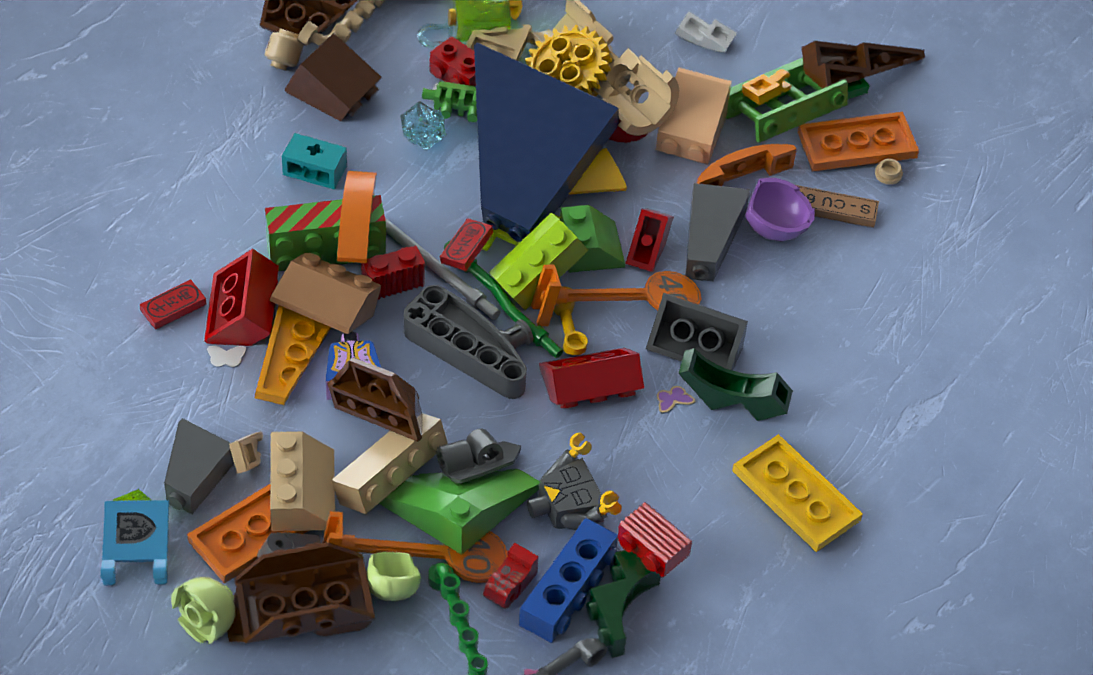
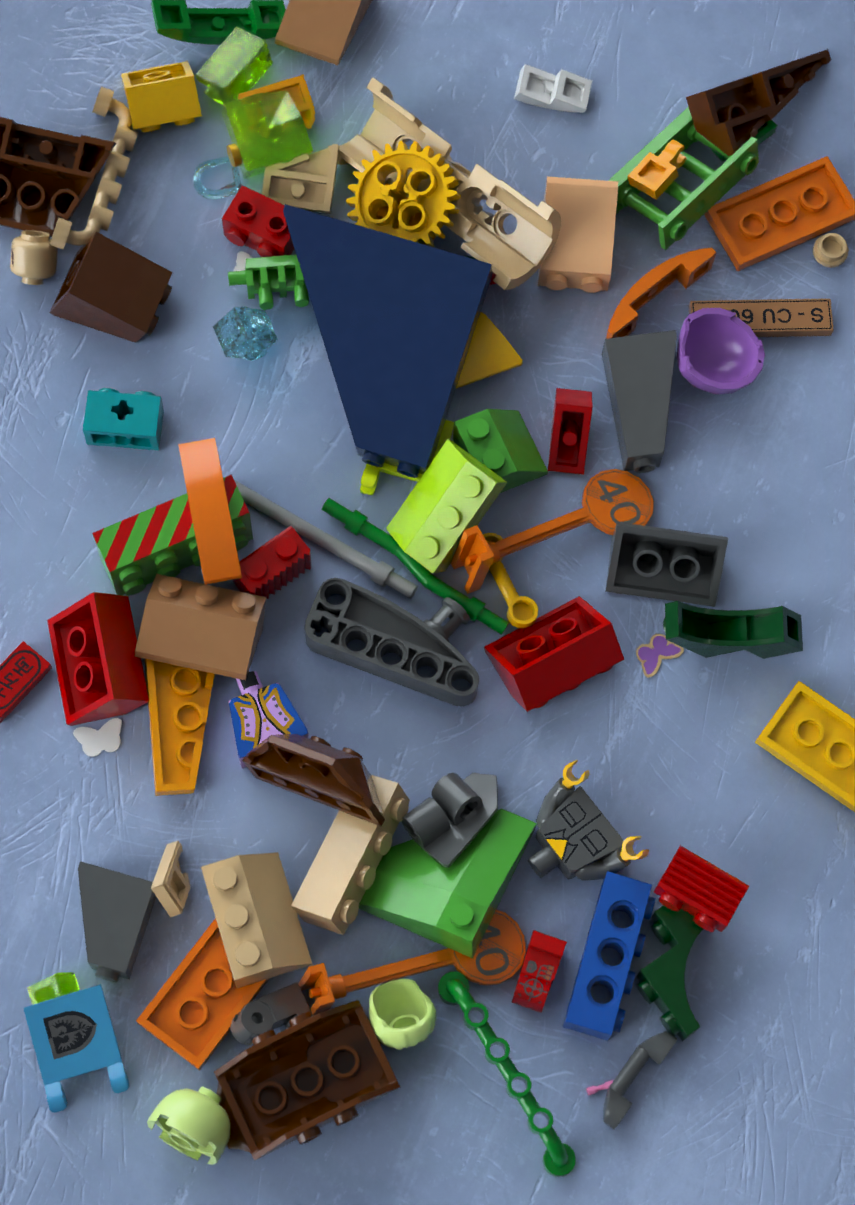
camera: 15 degrees left, 20 degrees up
(466, 244) = (351, 504): red tile -> none

